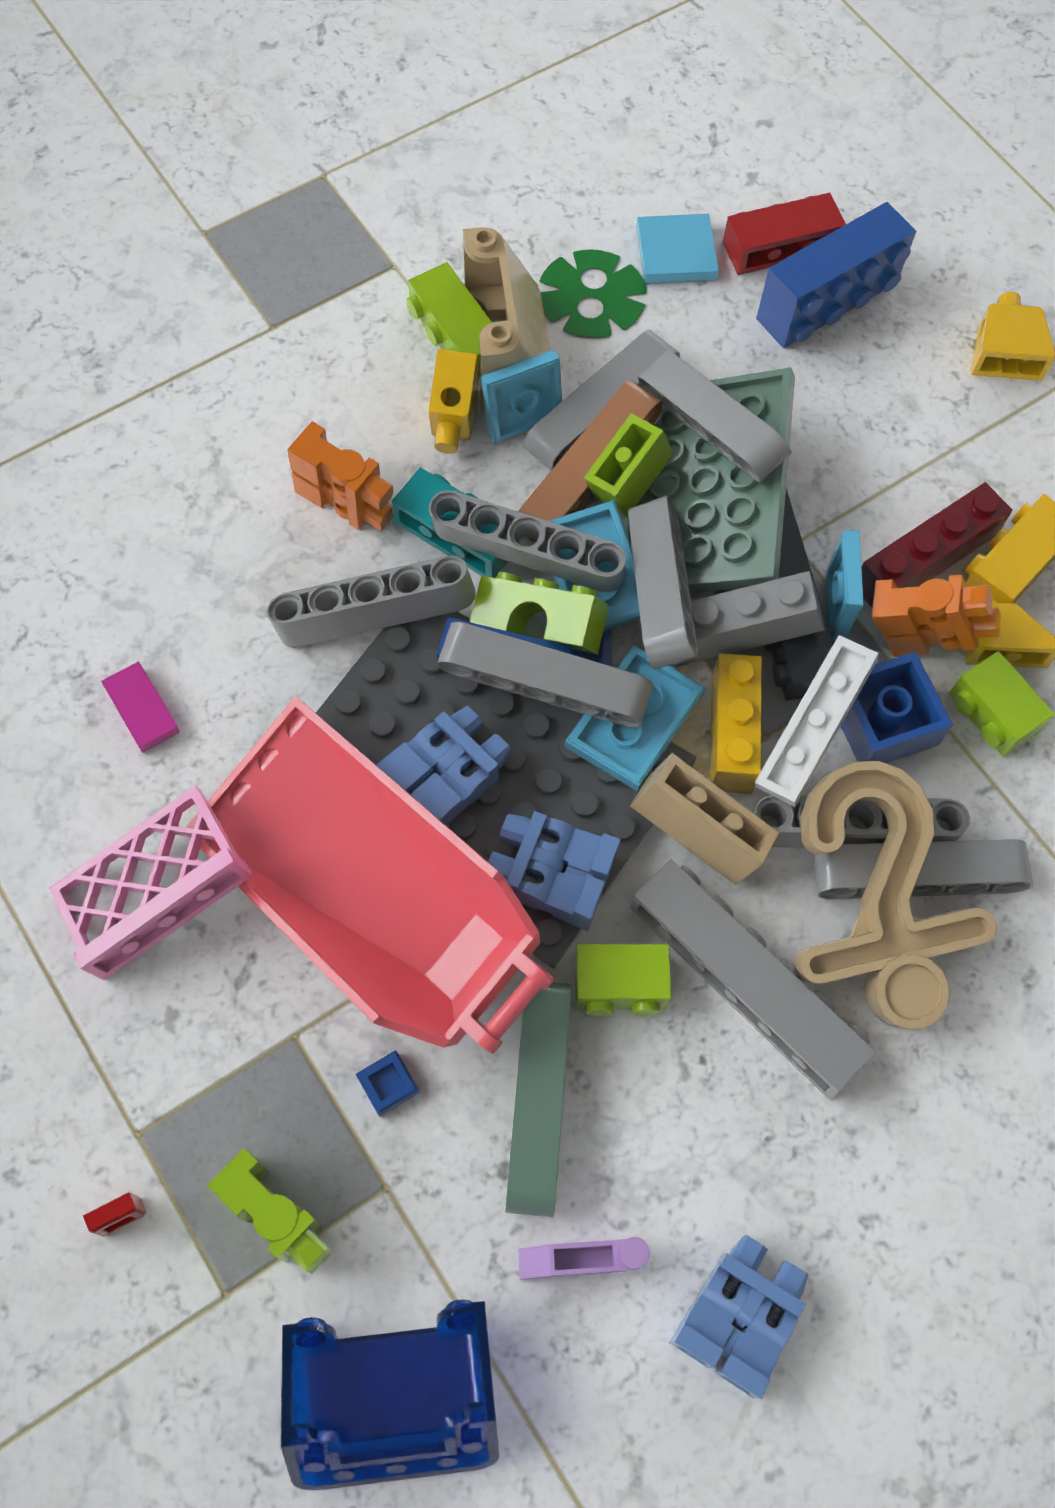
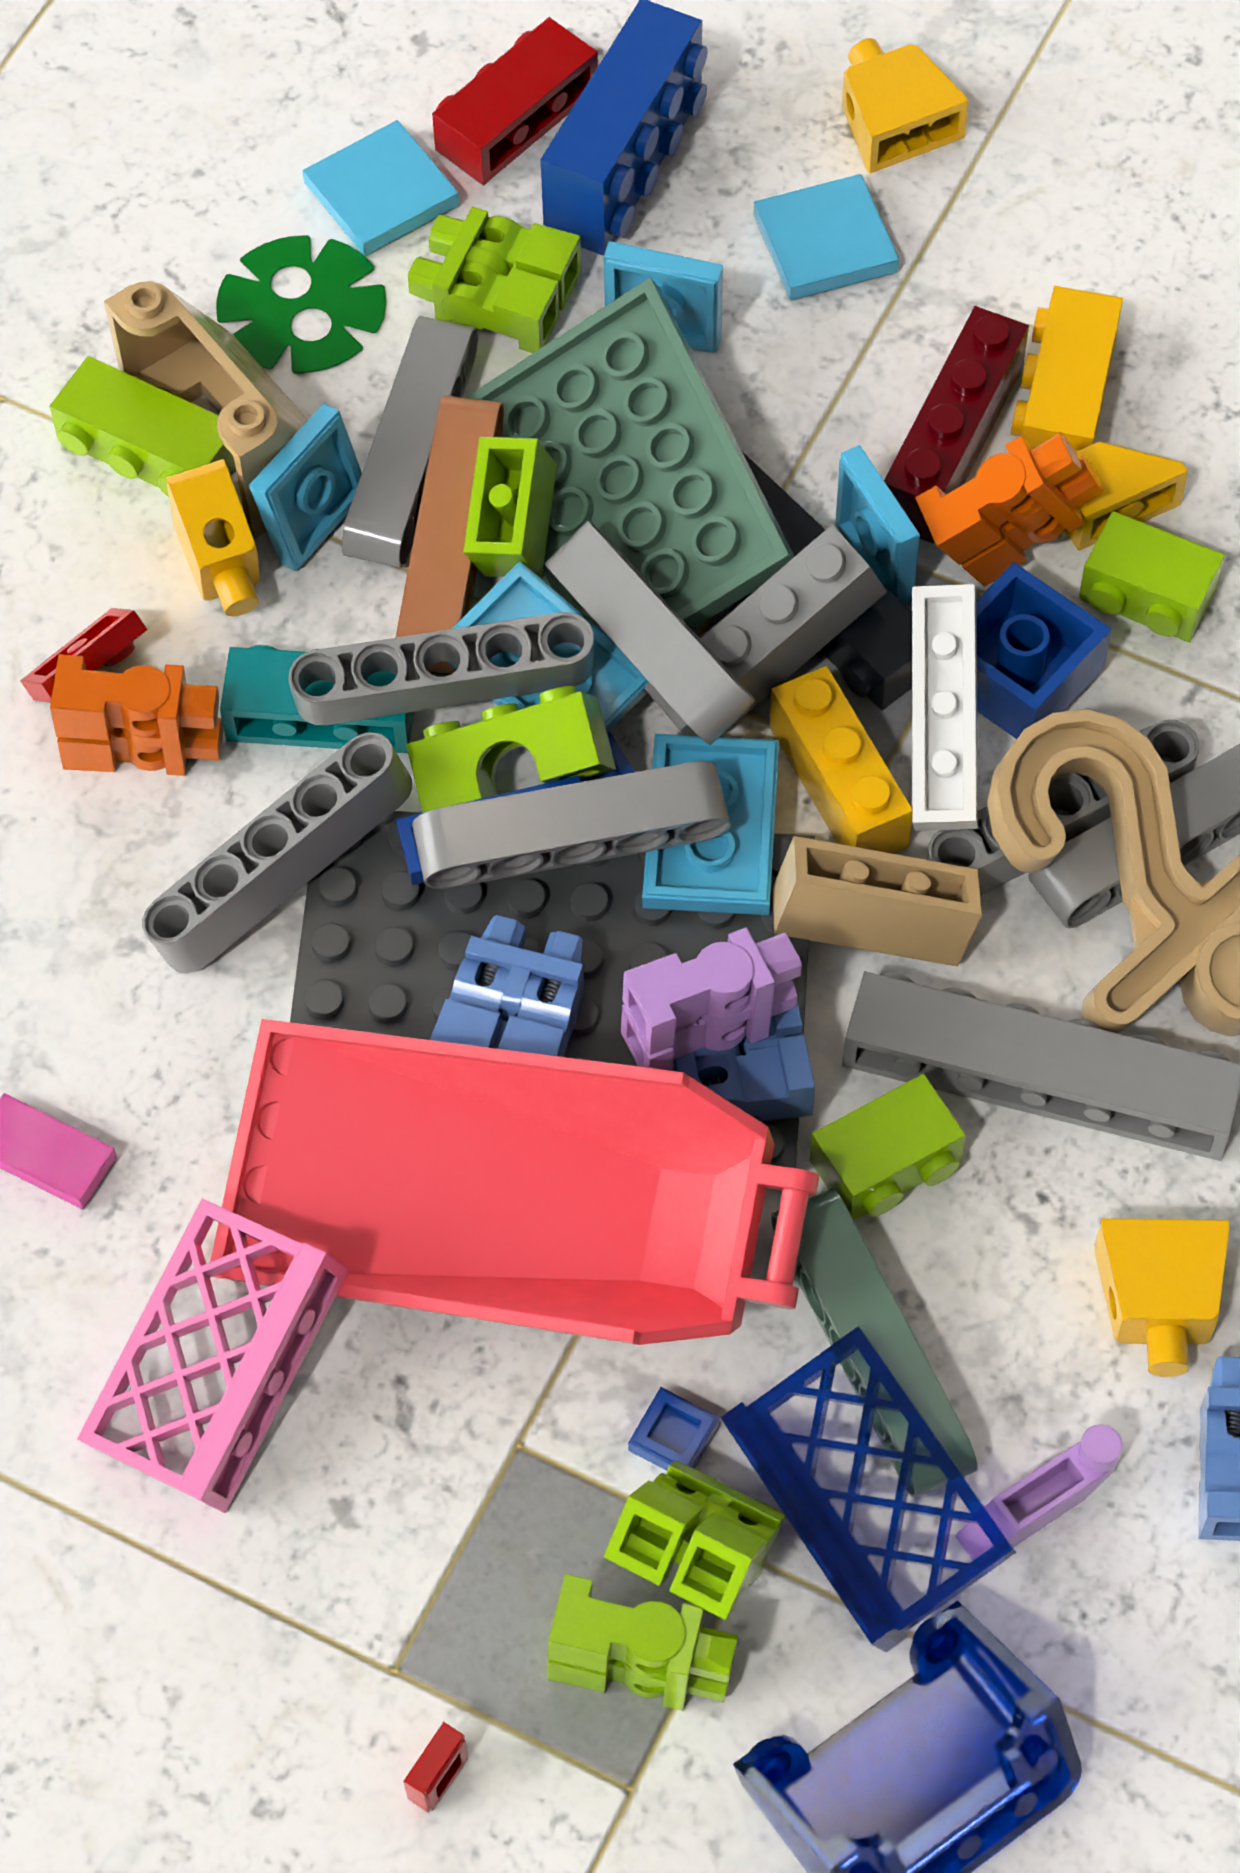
camera: 25 degrees left, 5 degrees down
(351, 1165) = (703, 1527): none -> lime hips
(358, 430) = (101, 643): none -> red plate
(433, 1200) = (818, 1522): none -> clear blue fence
(553, 830) = (707, 1000): none -> lavender hips
(712, 328) = (498, 275): none -> lime hips
(715, 416) = (586, 387): light grey beam -> none
(741, 1165) = (1162, 1284): none -> yellow torso
(813, 388) = (688, 284): none -> medium azure tile
(921, 399) = (825, 237): none -> medium azure tile

